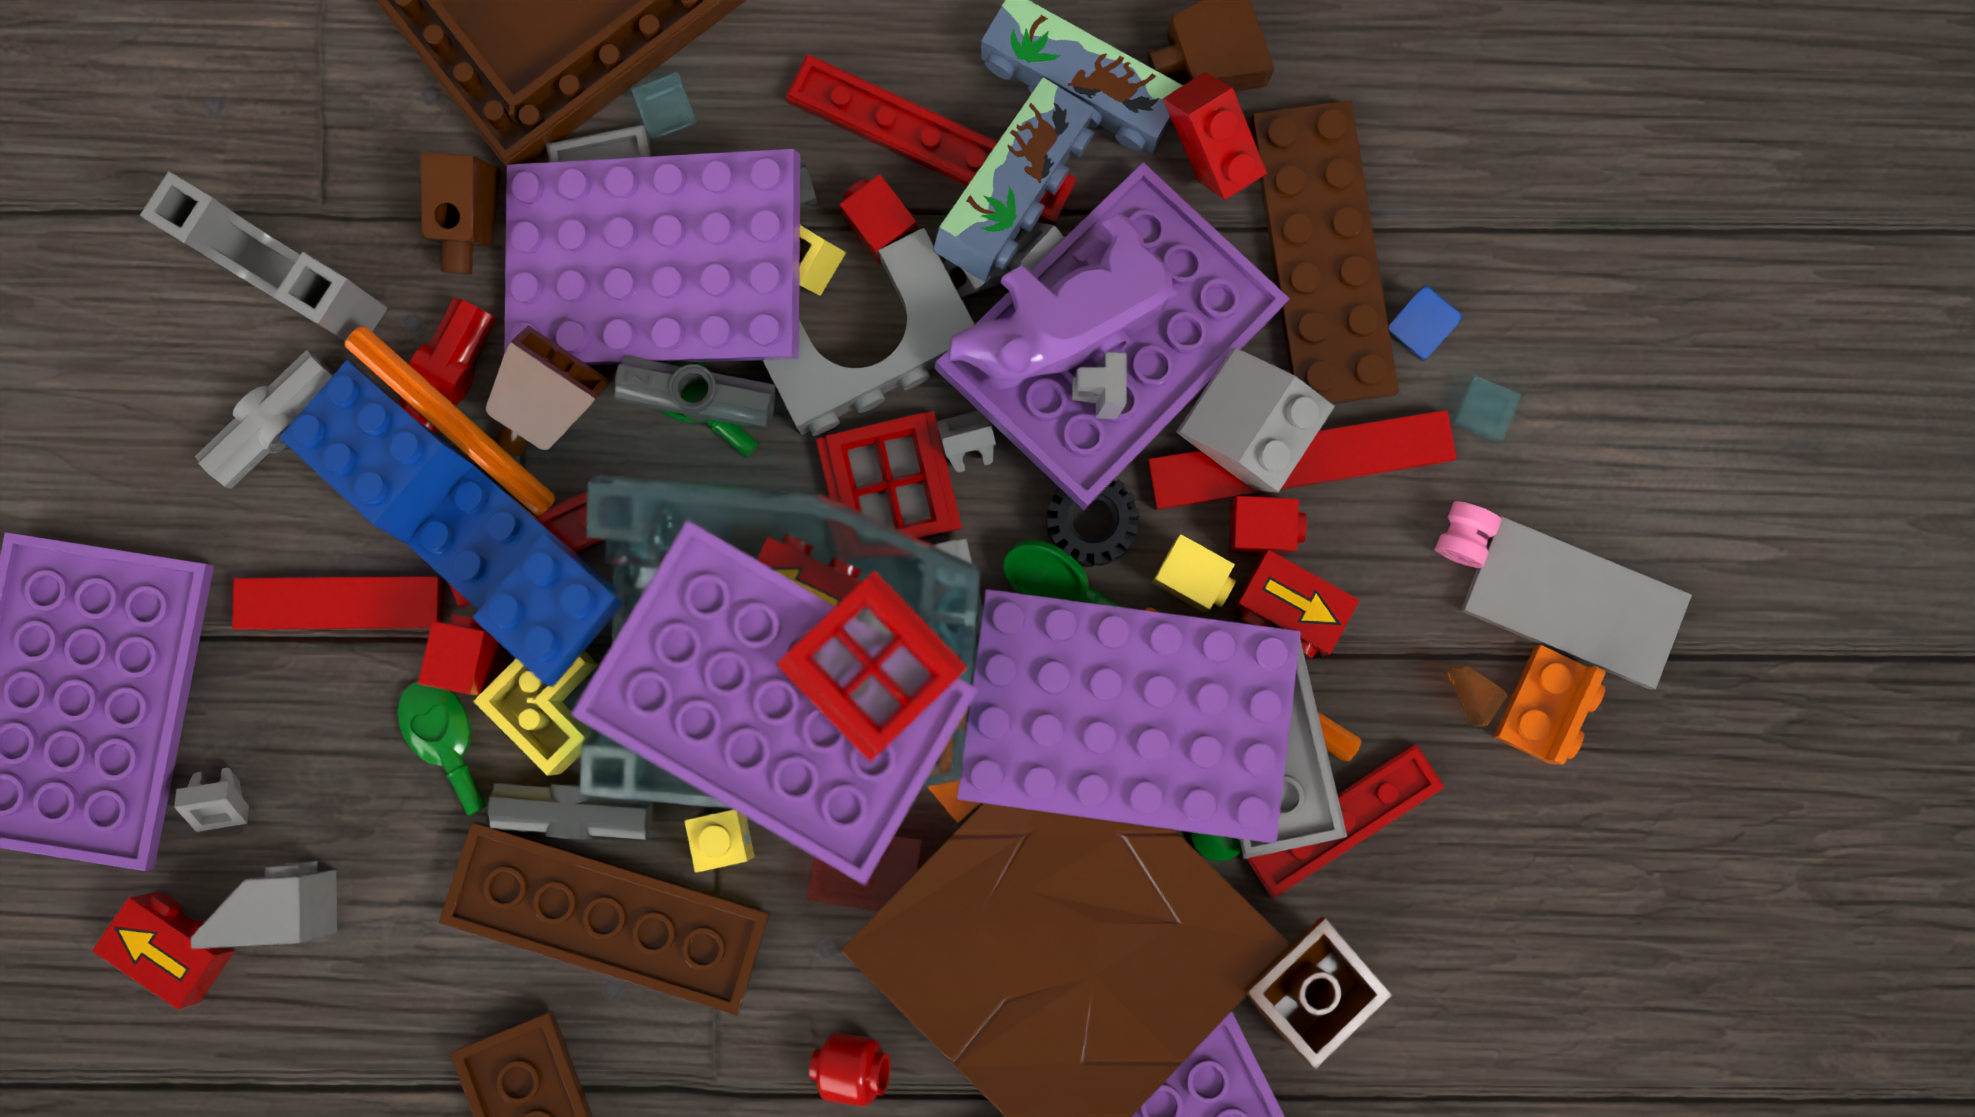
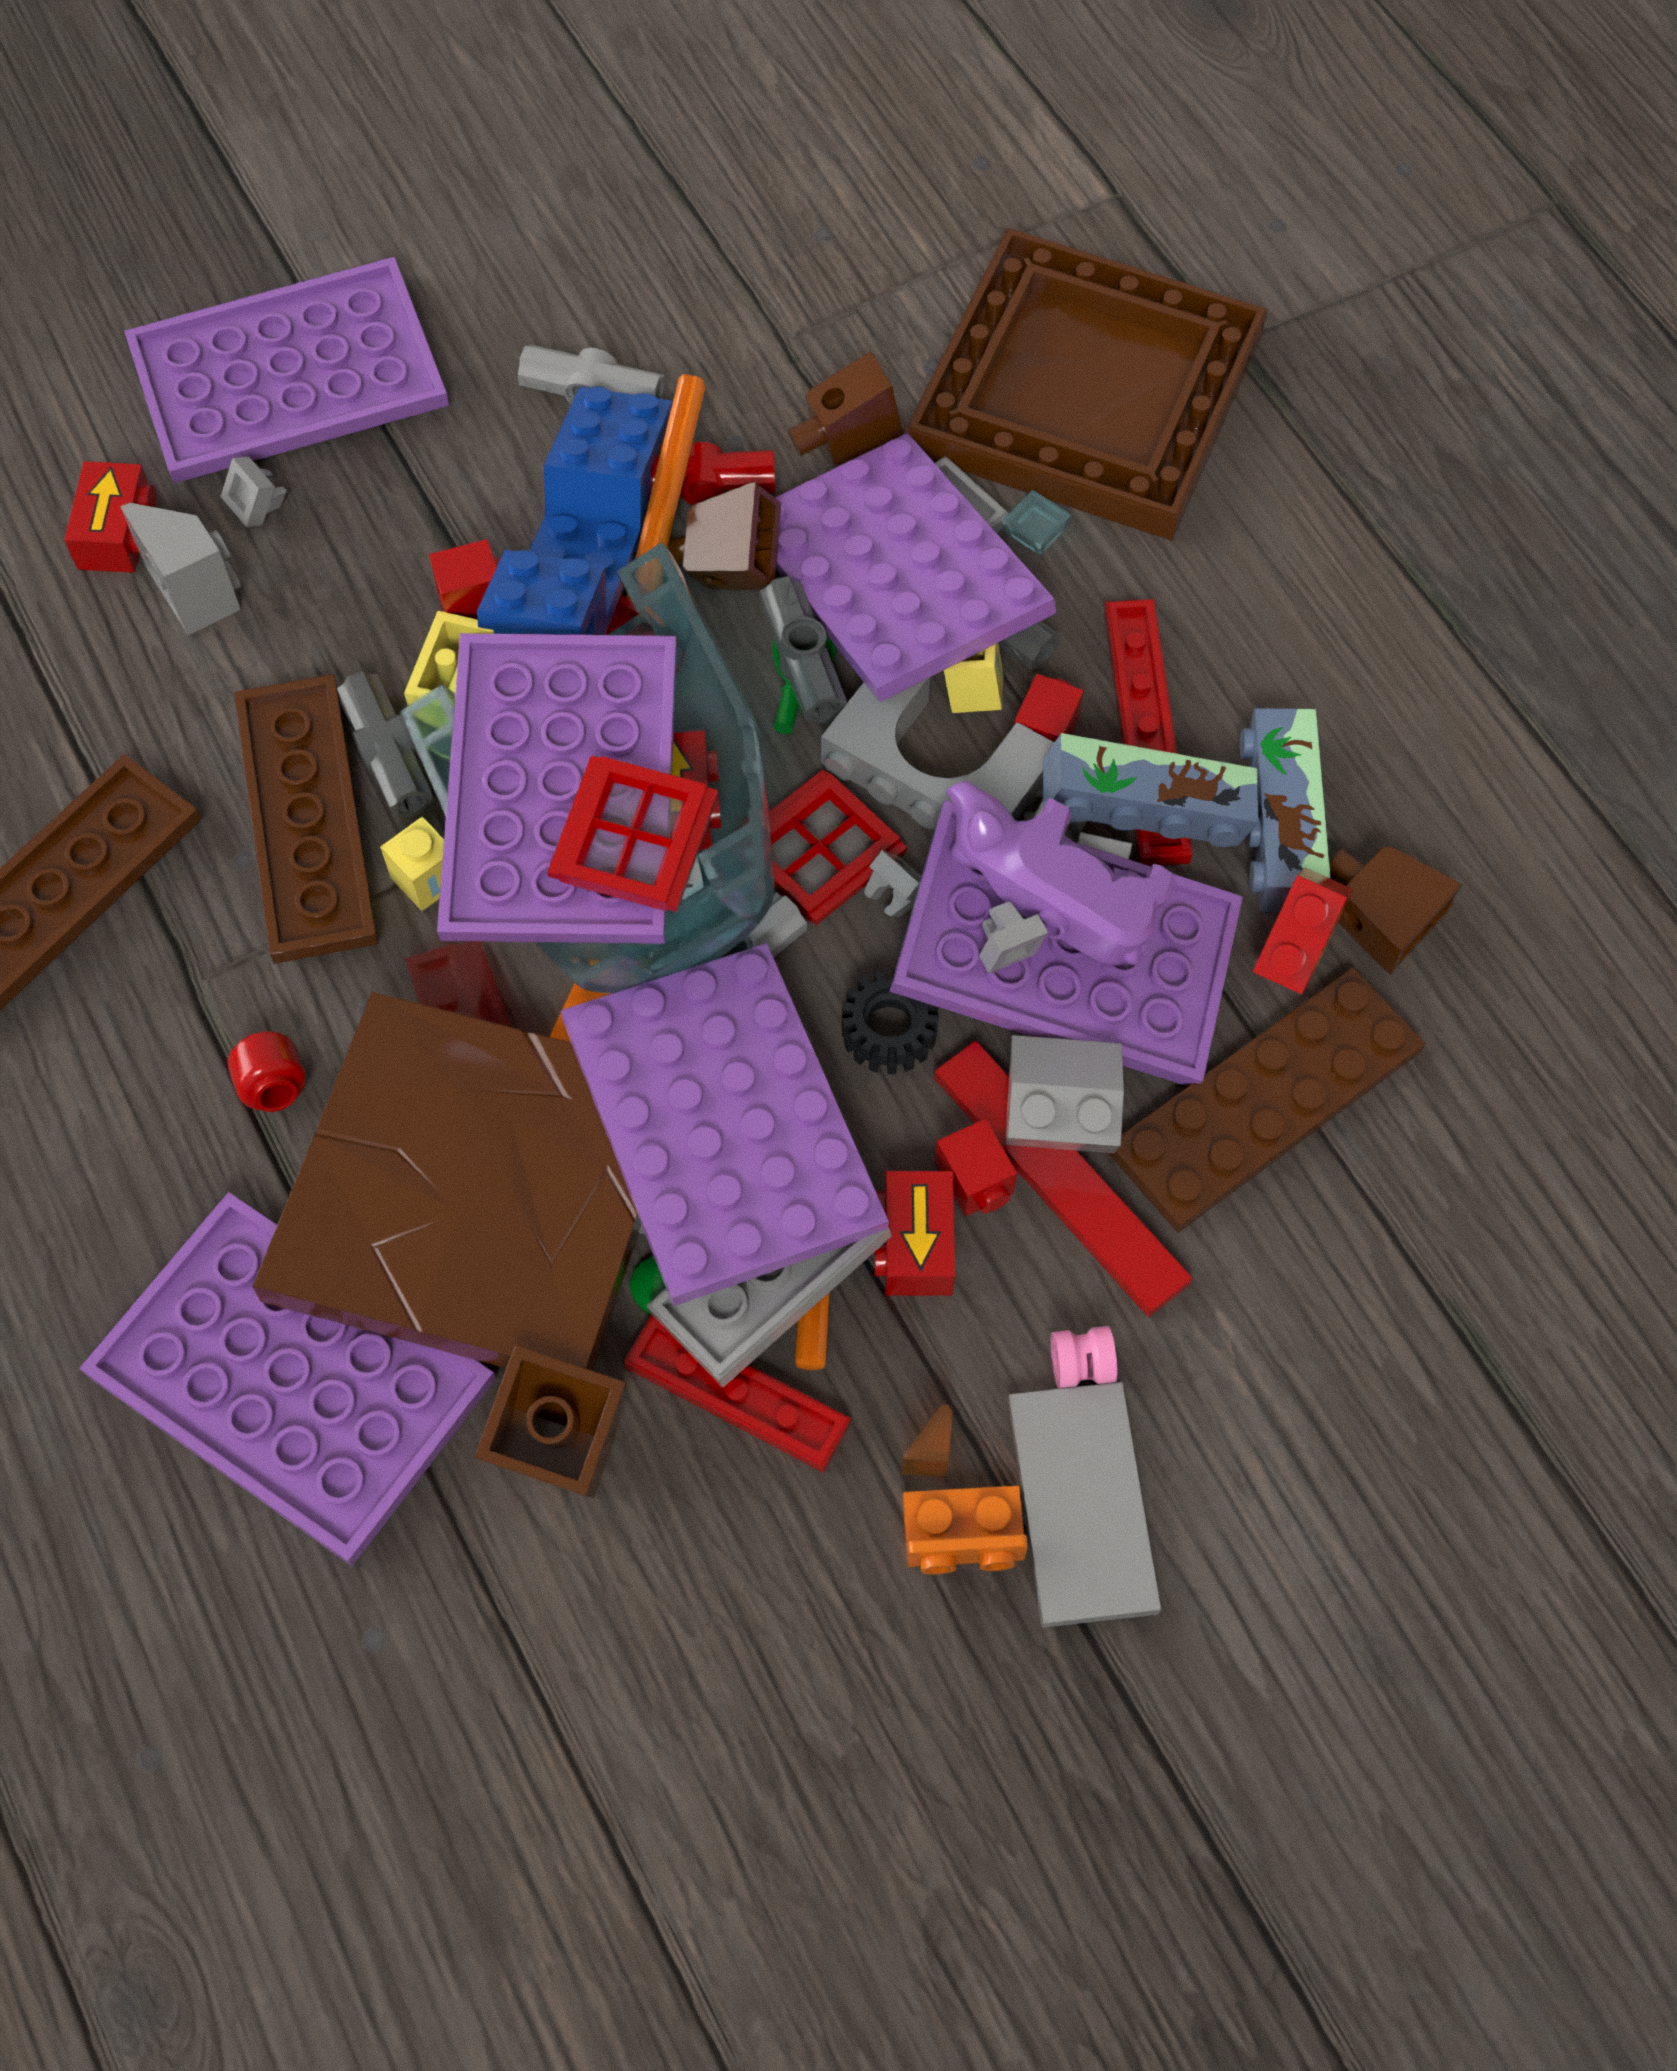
camera: 60 degrees right, 20 degrees down
(261, 259) = (715, 316): light grey arch -> none
(336, 603) = (462, 489): red tile -> none
(440, 734) = (396, 624): green piece -> none
(1049, 572) = (819, 1003): green piece -> none
(1195, 575) = (891, 1129): light yellow brick -> none
(1424, 322) = (1262, 1217): blue slope -> none
(1486, 409) = (1218, 1319): clear light blue tile -> none

